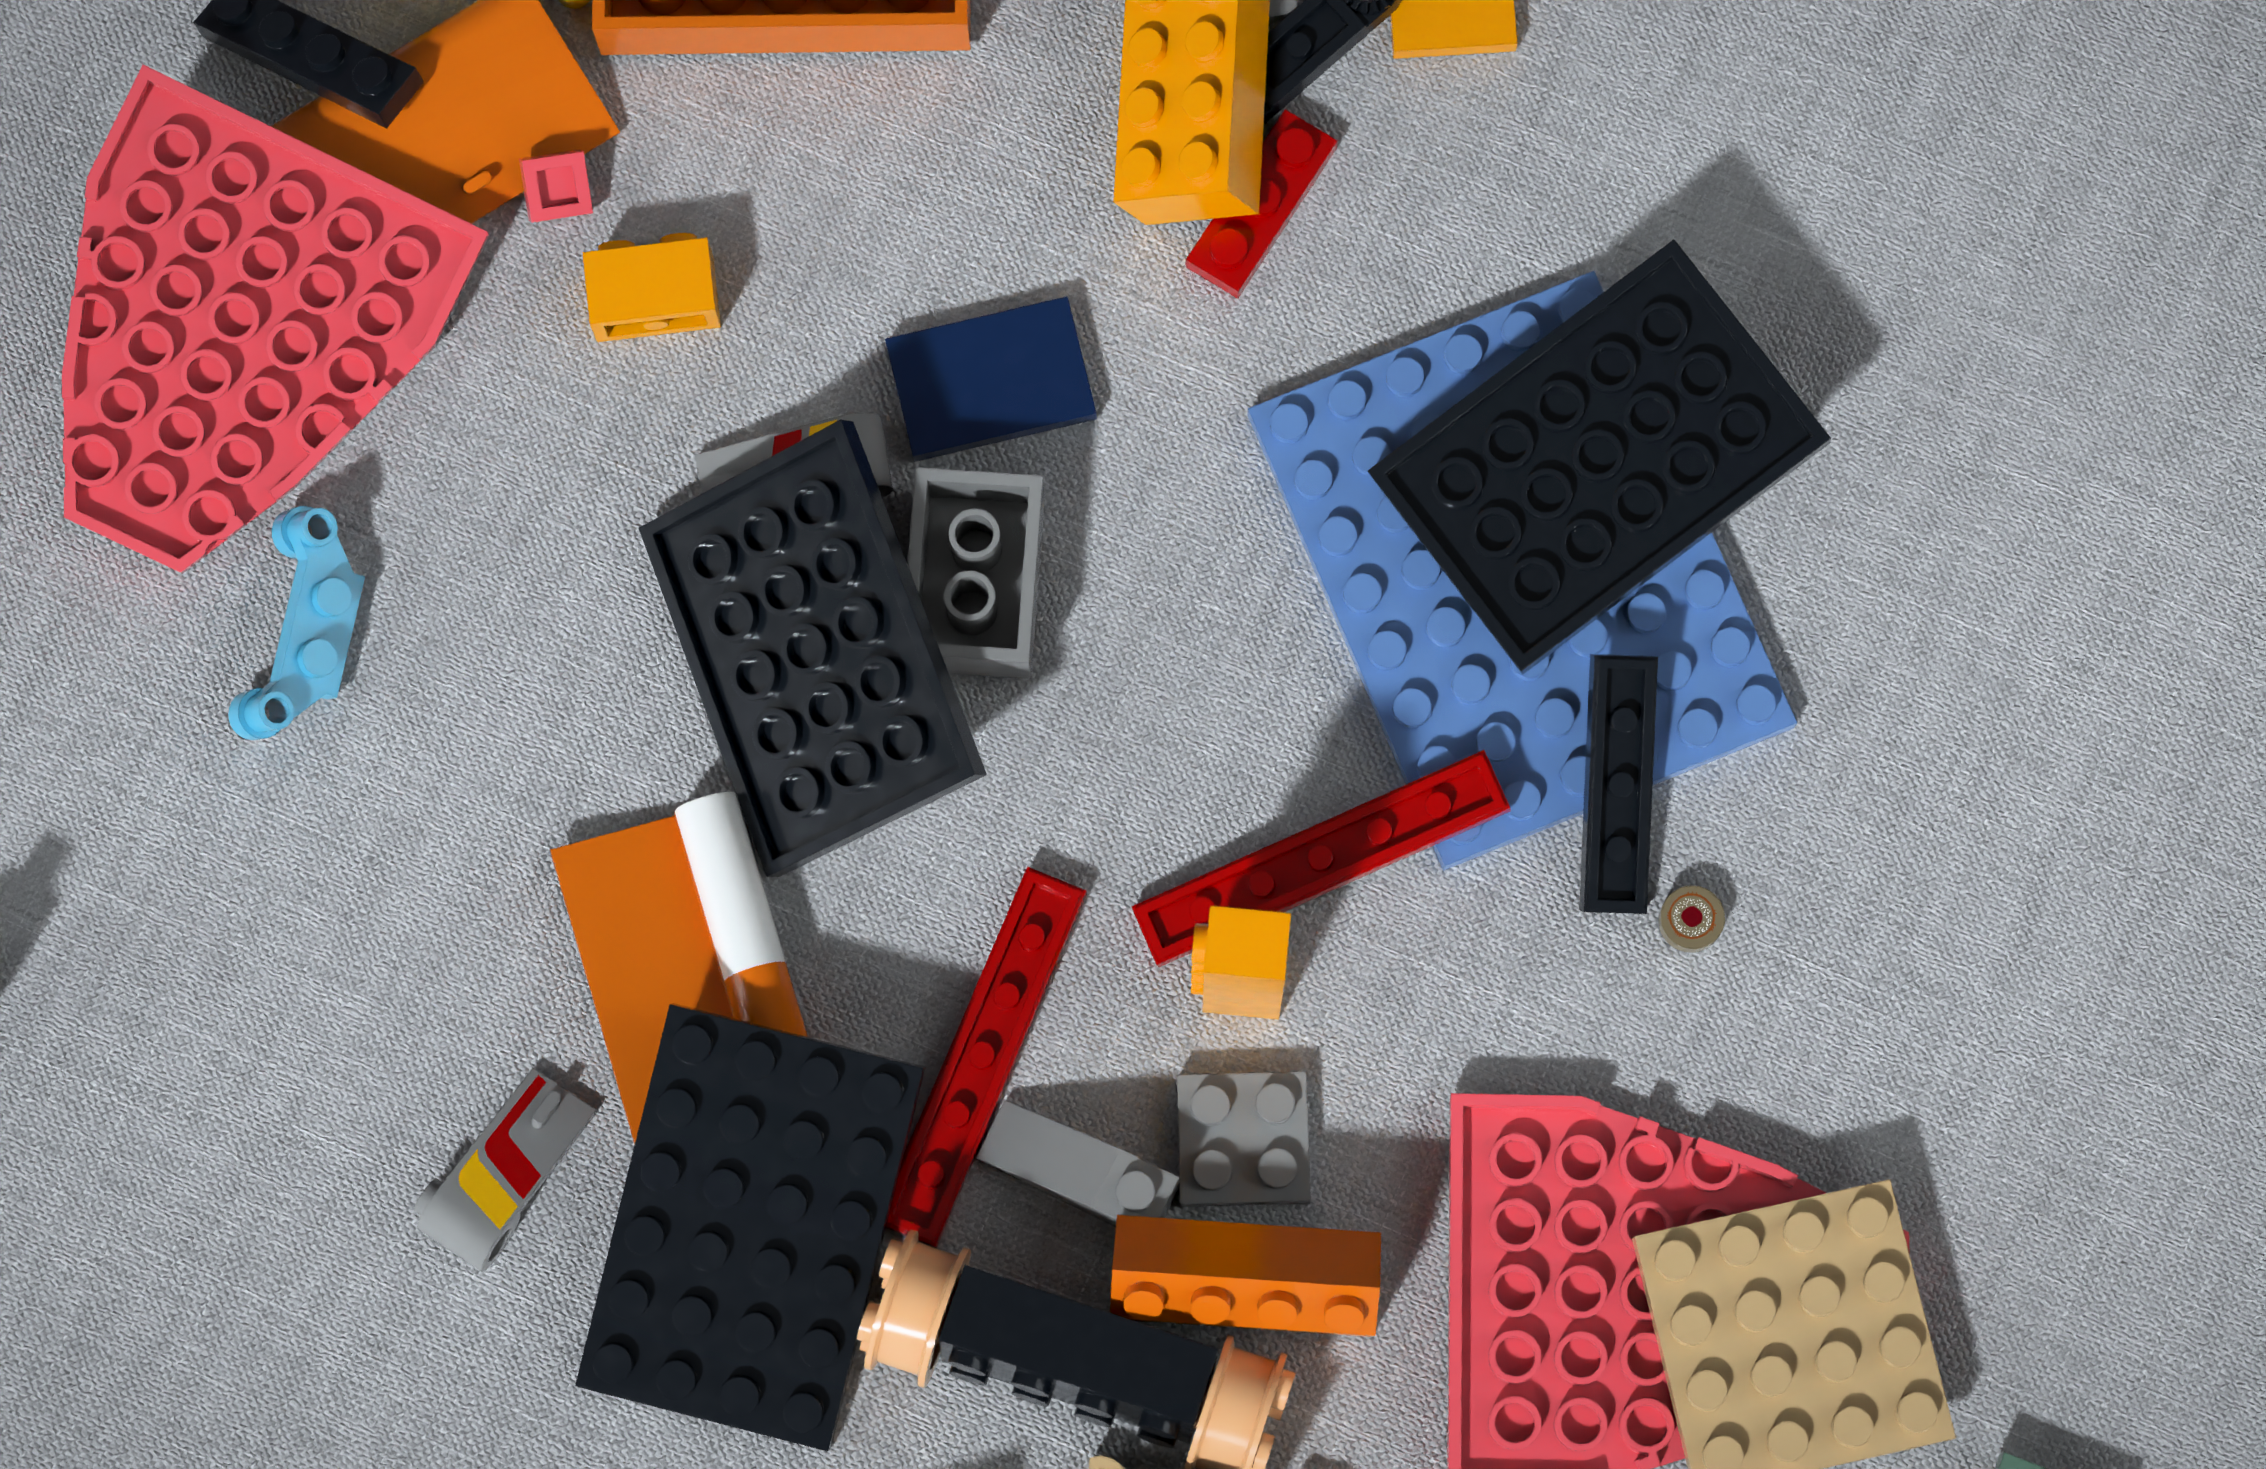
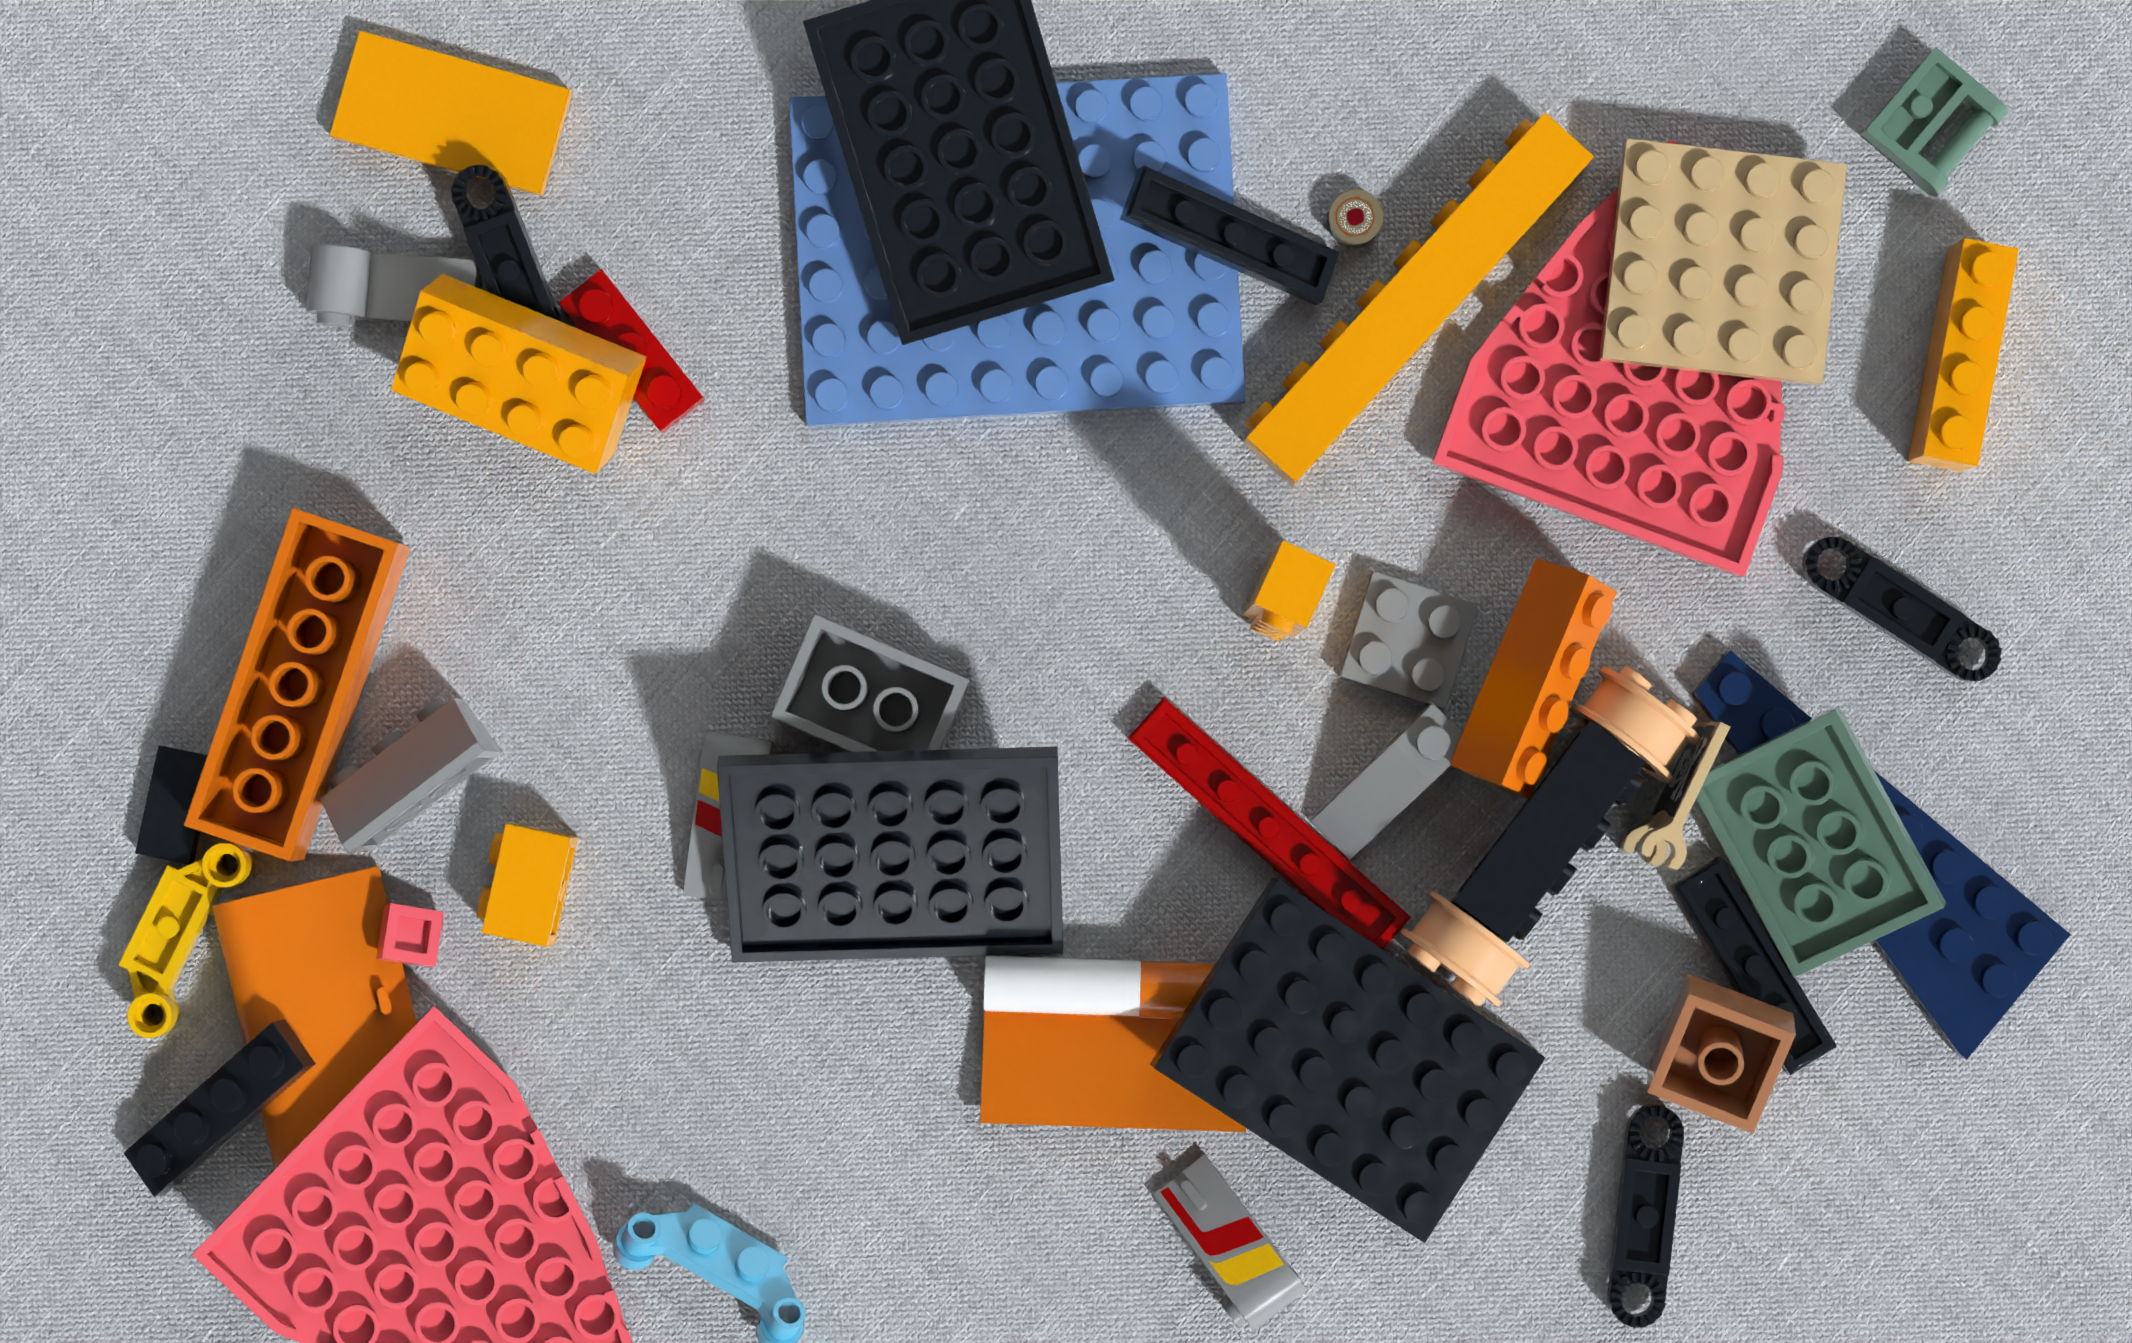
camera: 70 degrees left, 10 degrees up
(725, 125) = (407, 774): none -> light grey slope
(991, 379) = (704, 627): dark blue tile -> none
(1328, 853) = (1206, 497): red tile -> none
(1627, 1015) = (1417, 299): none -> light orange brick

